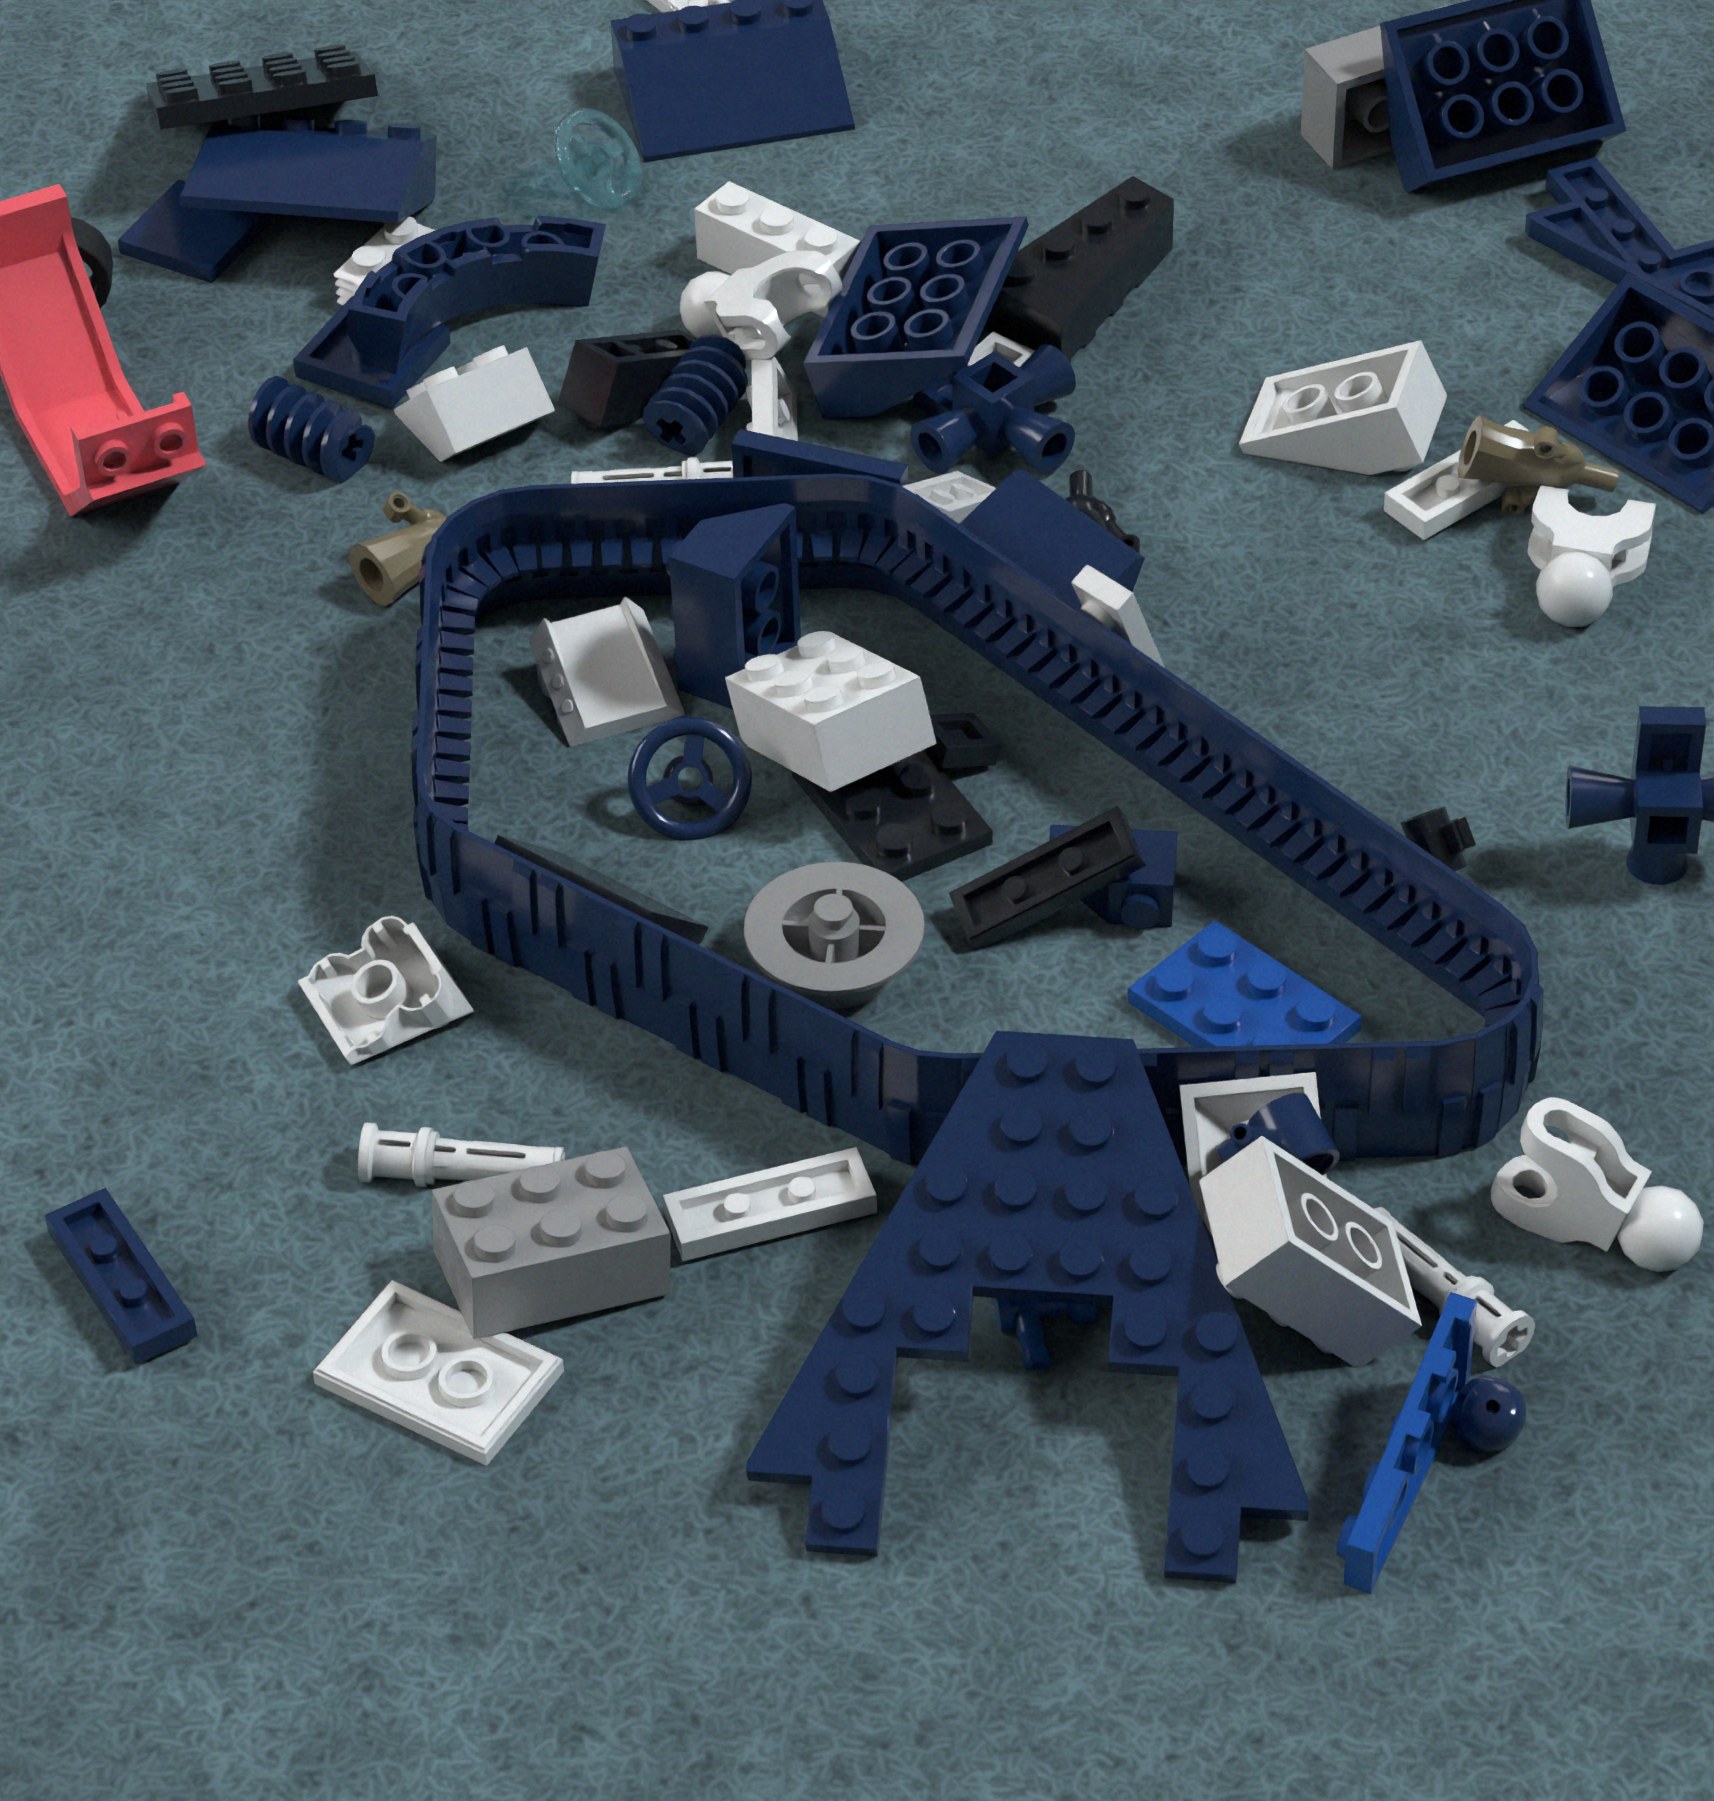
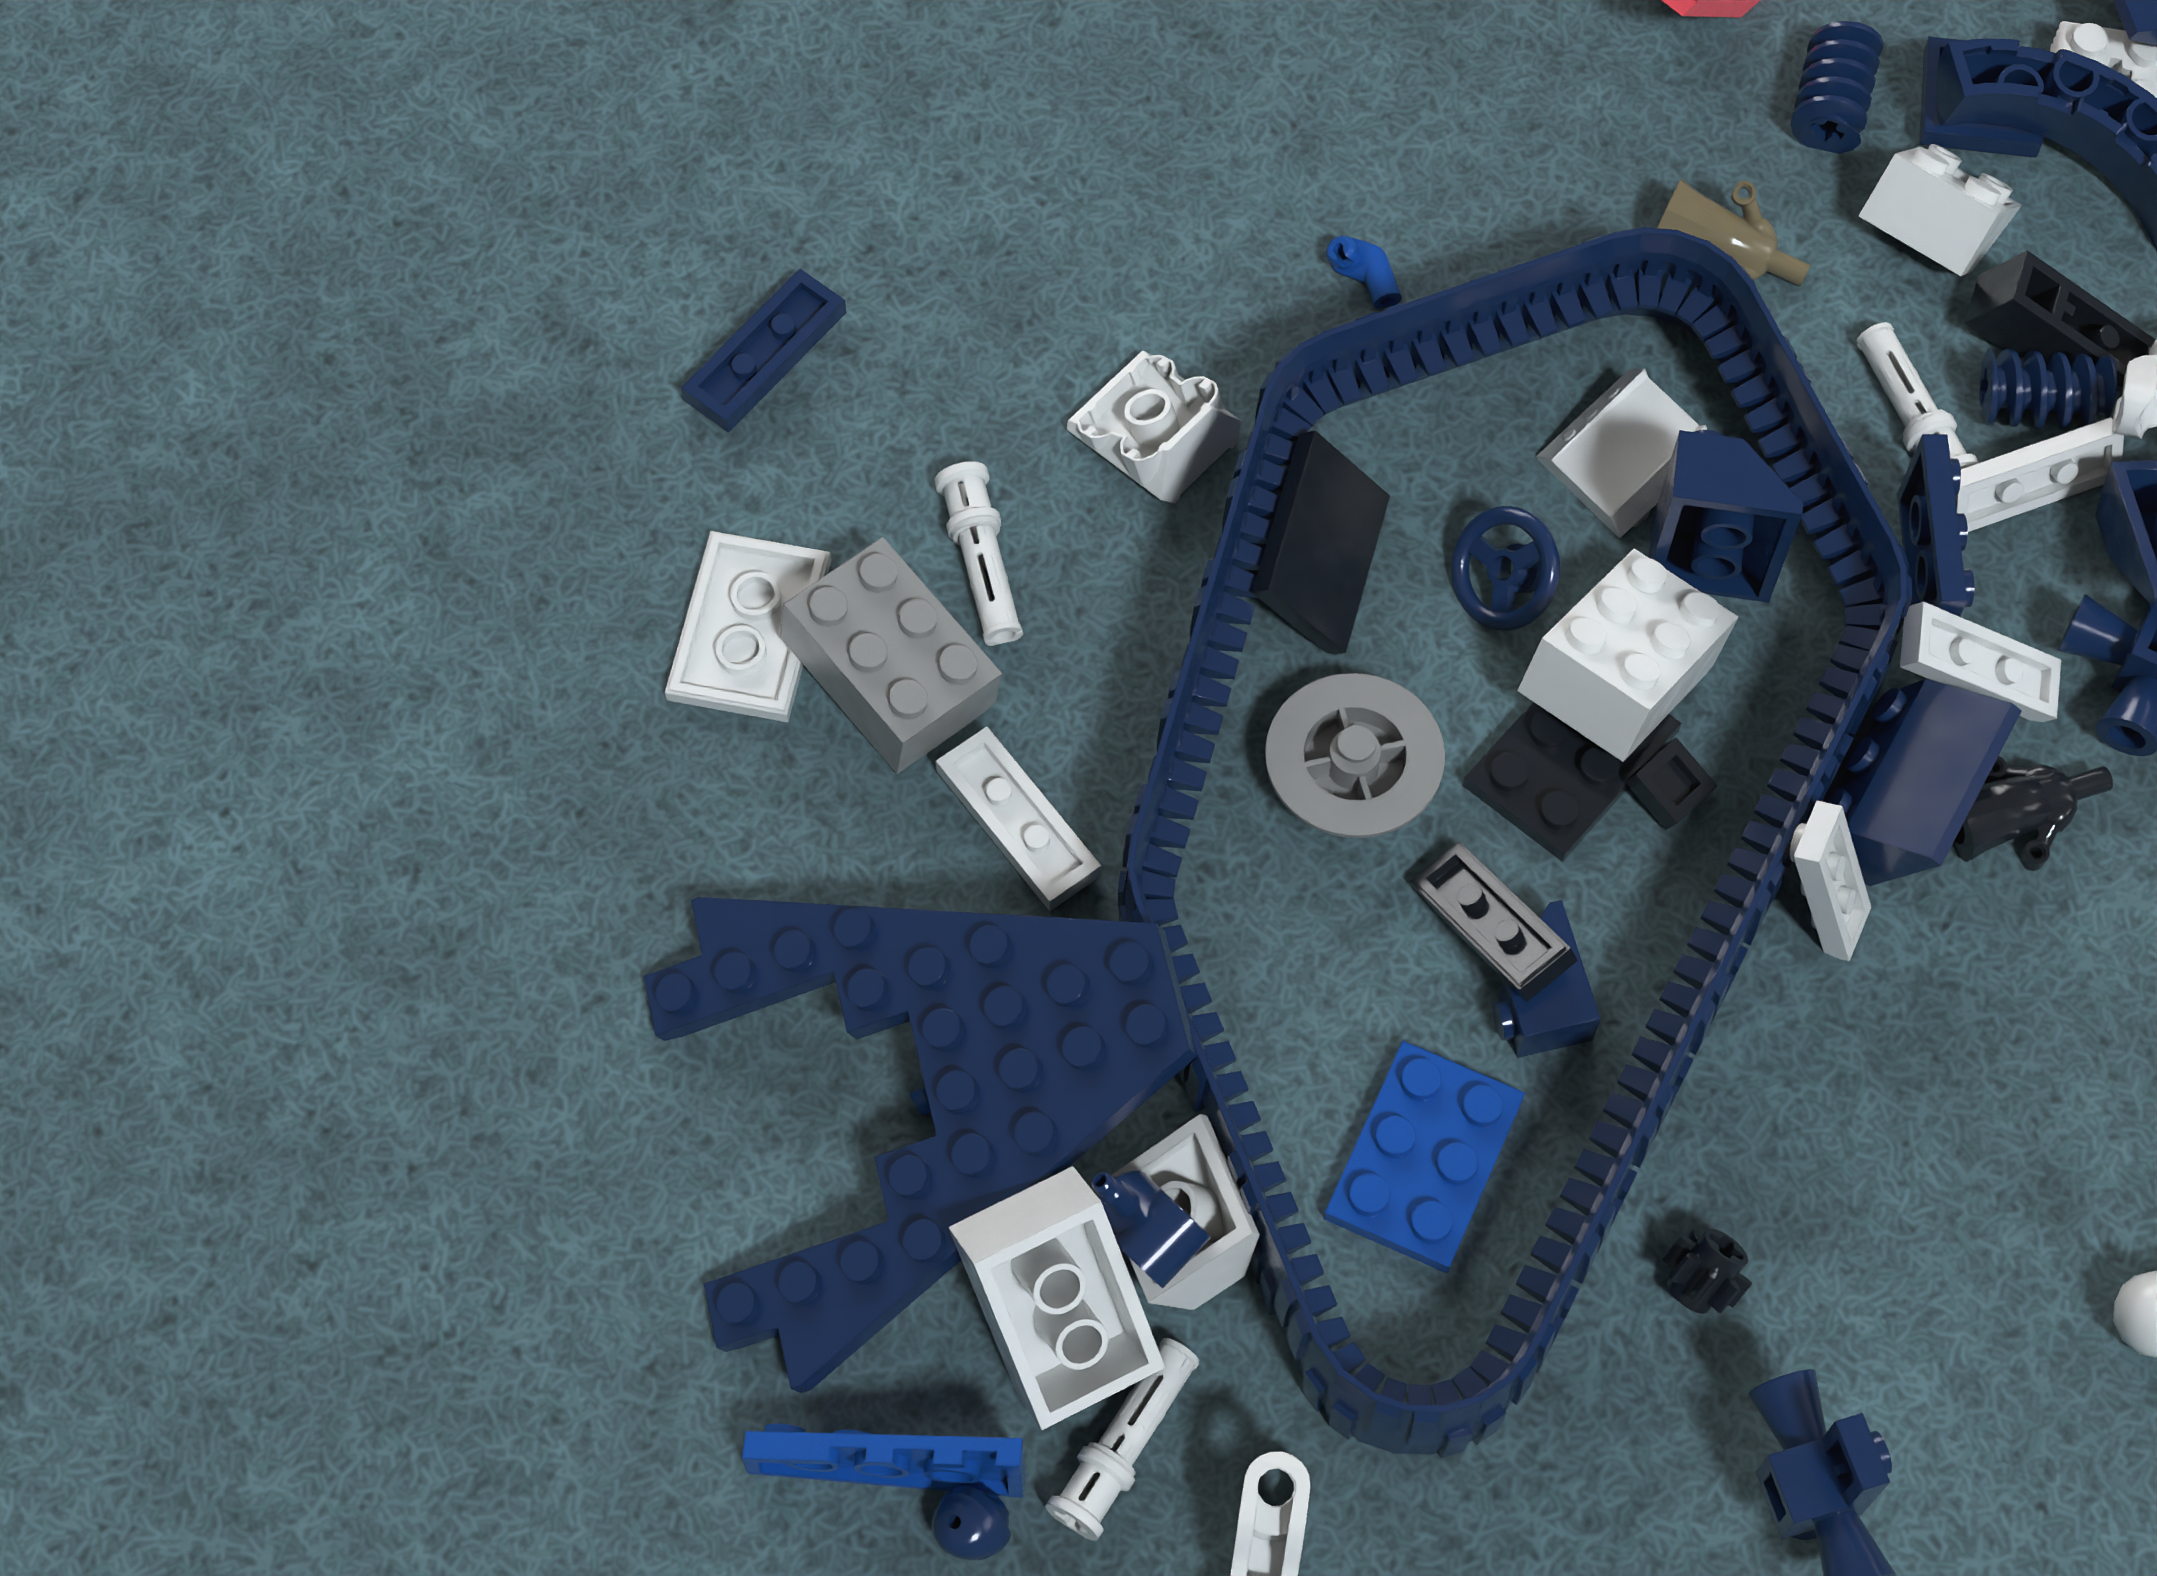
camera: 70 degrees right, 20 degrees up
(298, 797) = (1367, 265): none -> blue arm

